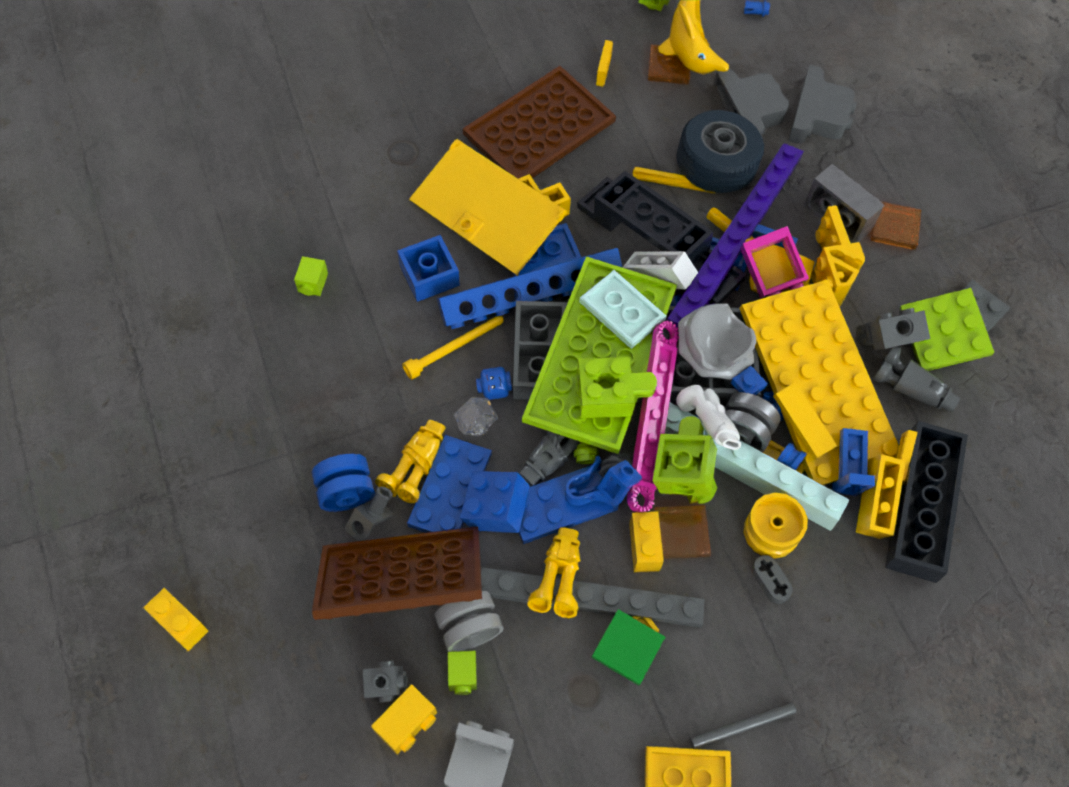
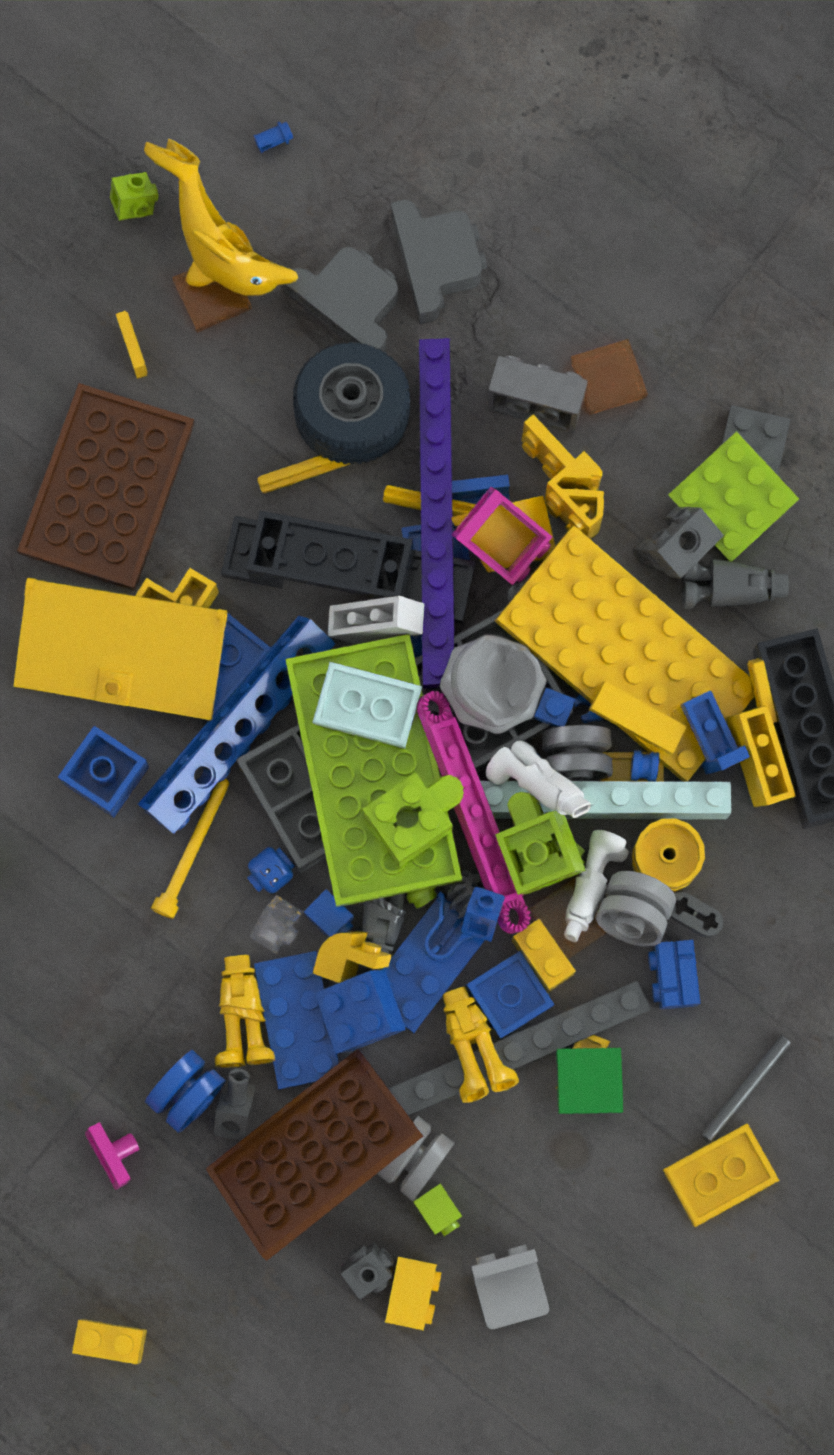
camera: 30 degrees left, 15 degrees up
(269, 498) = (112, 1153): none -> dark pink tile
(510, 457) = (343, 953): none -> yellow brick
(514, 433) = (328, 917): none -> blue brick
(606, 555) = (510, 995): none -> blue plate
(708, 509) = (591, 884): none -> white piece
(732, 544) = (636, 908): none -> light grey wheel
(734, 611) = (675, 974): none -> blue brick

